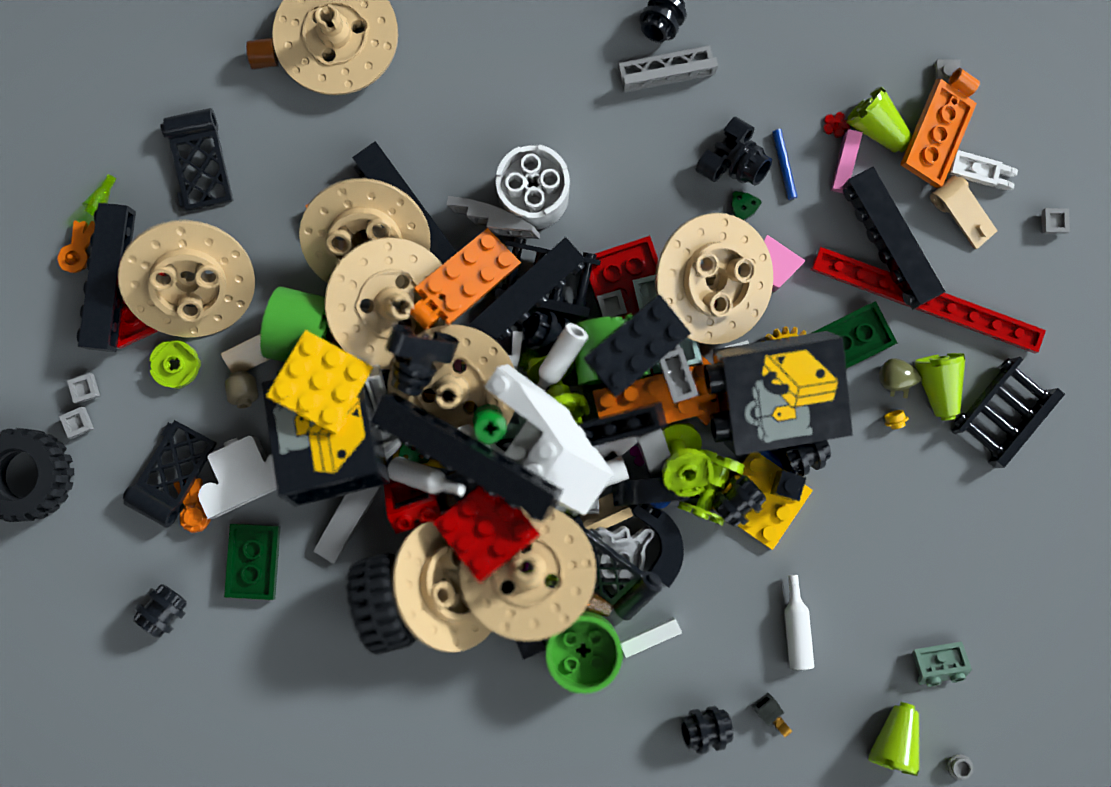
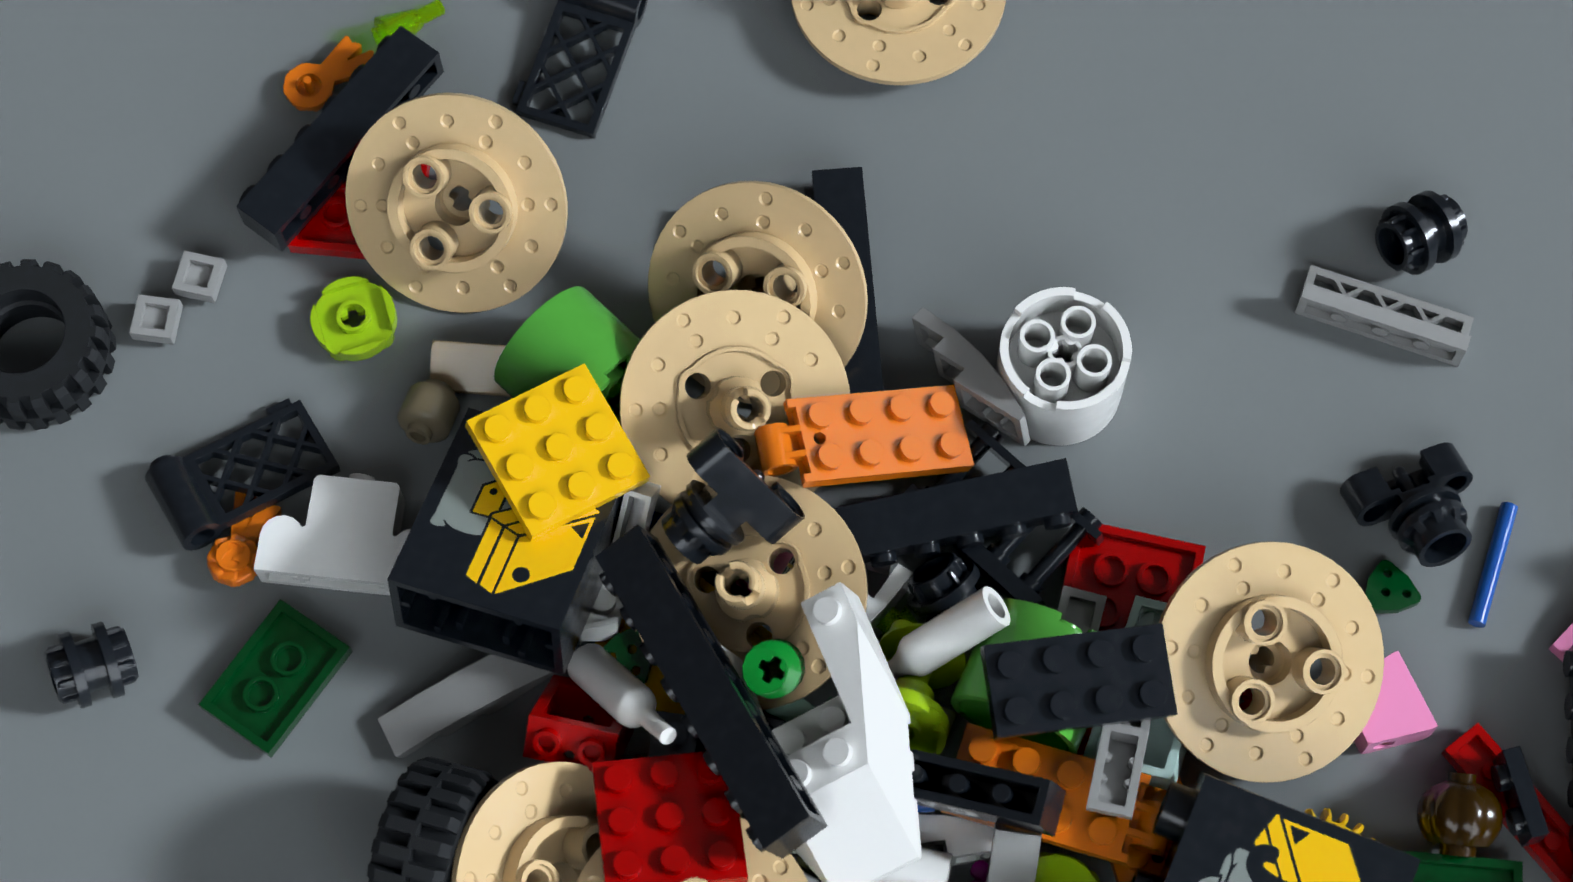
camera: 35 degrees right, 15 degrees down
(837, 297) = (1459, 815): none -> dark brown plant
(866, 278) = (1524, 812): none -> black plate

